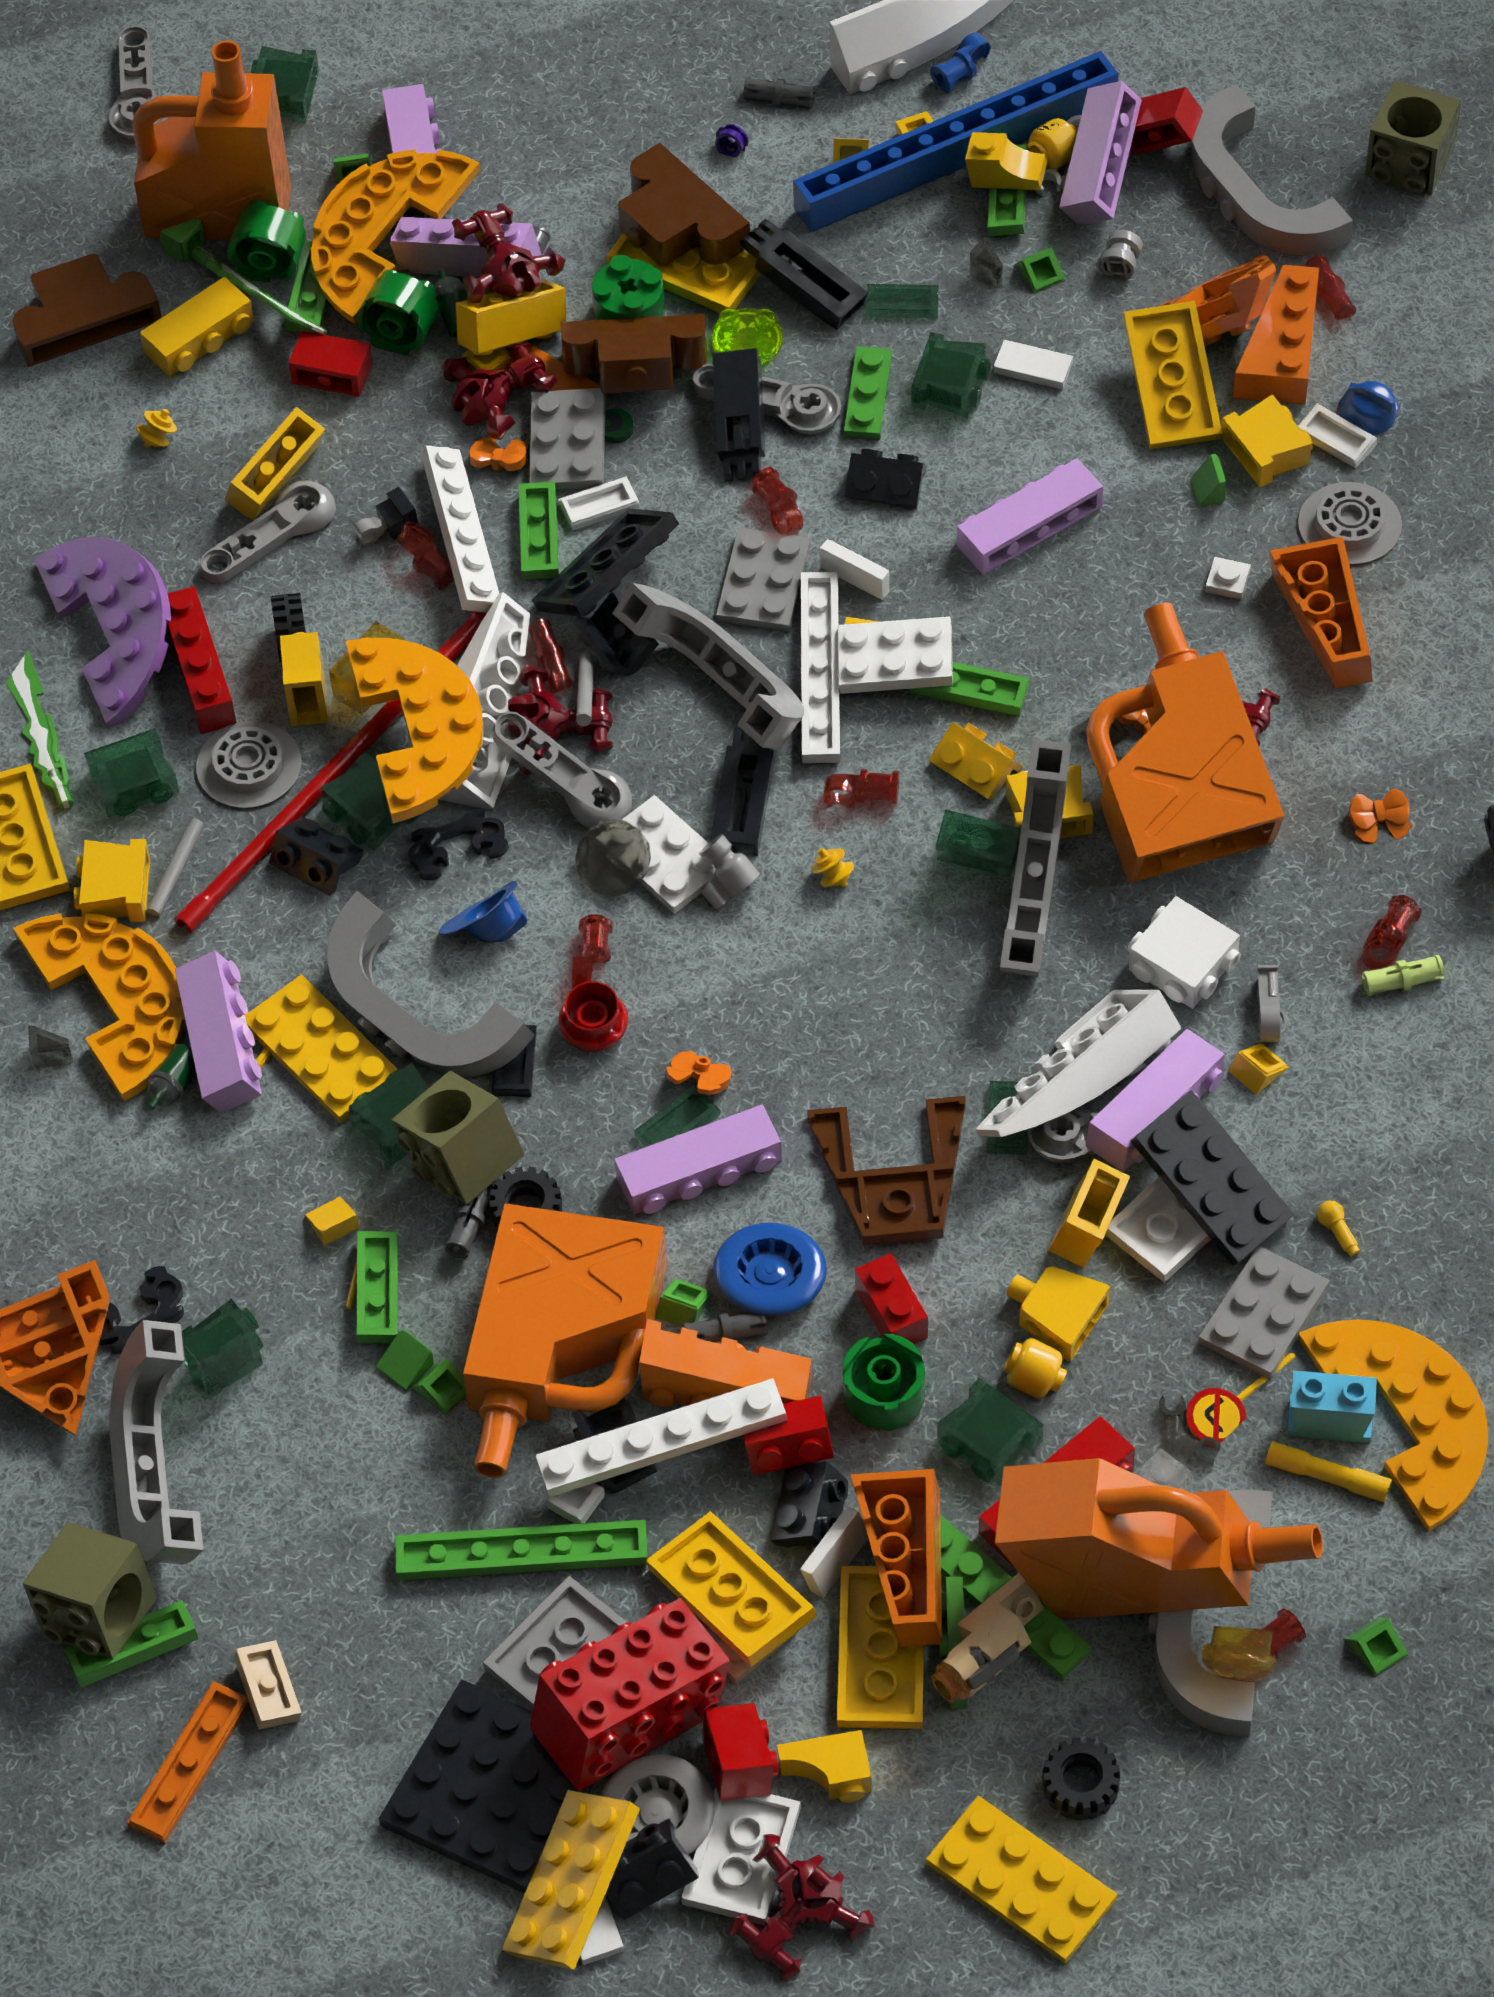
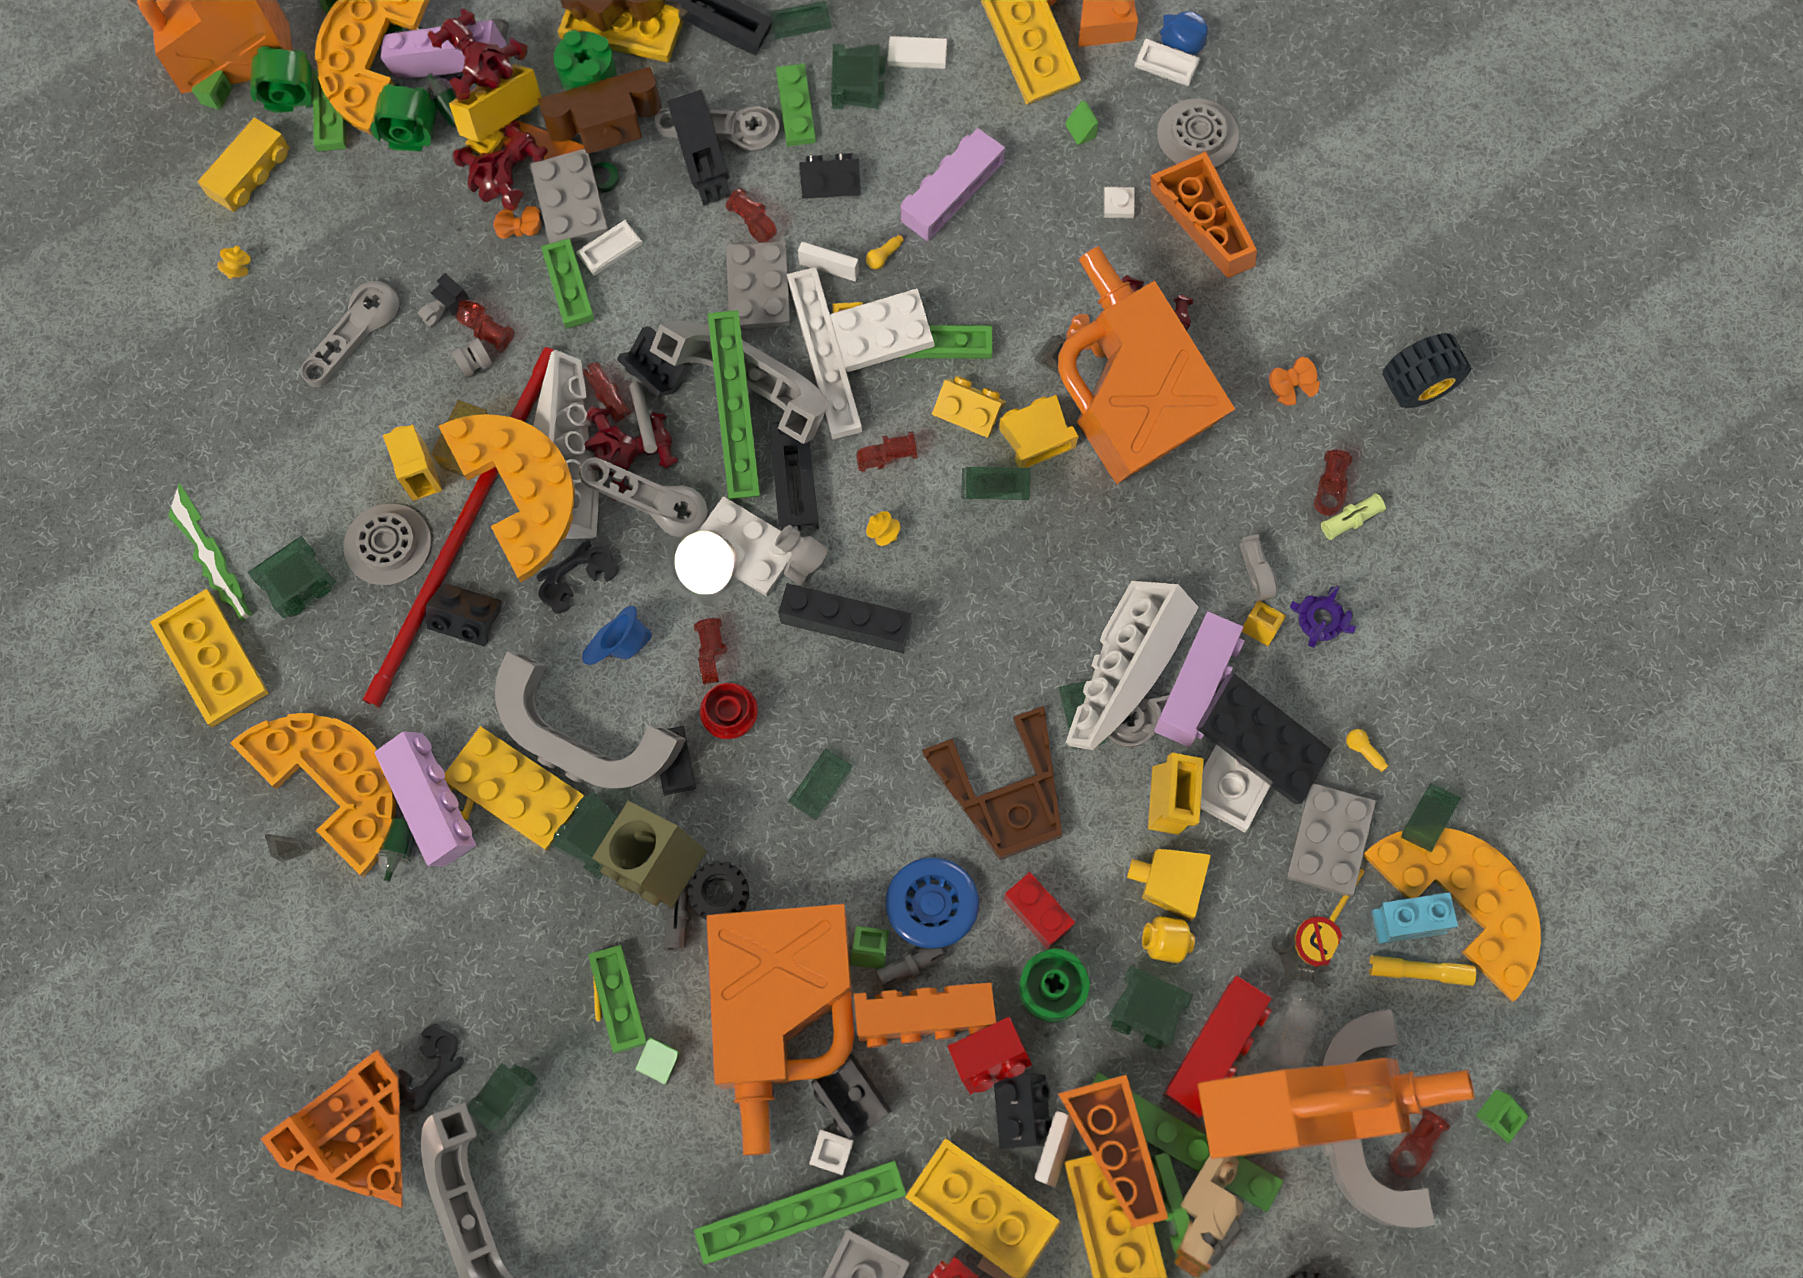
camera: 15 degrees left, 15 degrees up
(81, 309) = (144, 169): reddish brown brick -> none
(113, 879) = (302, 679): yellow hips -> none
(129, 607) = (252, 432): medium lavender plate -> none
(175, 867) = (350, 652): light grey bar -> none
(199, 662) = (320, 463): red brick -> none
(210, 262) = (281, 122): bright green sword -> none
(274, 464) = (338, 273): yellow brick -> none
(287, 616) = (385, 411): black tyre -> none
(330, 363) = (361, 173): red brick -> none
(333, 1220) = (563, 943): yellow slope -> none
(360, 804) = (485, 560): clear green hips -> none
(394, 586) = (465, 361): none -> light grey wheel
(442, 1386) = (693, 1074): bright green slope -> none
(460, 528) = (505, 297): white plate -> none
(606, 562) = (629, 301): black plate -> none
(661, 1437) = (890, 1092): white plate -> none
(694, 695) = (733, 405): none -> bright green plate
(698, 1160) = (847, 818): lavender brick -> none
(711, 1077) = (838, 737): orange piece -> none
(748, 330) = (686, 74): clear neon green dish -> none
(758, 951) = (845, 618): none -> black brick
(915, 578) = (877, 257): none -> yellow piece
(1036, 858) = (1042, 437): light grey arch -> none
(1184, 952) = (1181, 539): white brick -> none
(1239, 1653) = (1411, 1168): clear yellow piece -> none
(1266, 440) = (1117, 79): yellow hips -> none
(1313, 1069) = (1321, 632): none -> dark purple piece
(1390, 1312) = (1430, 817): none -> clear green tile

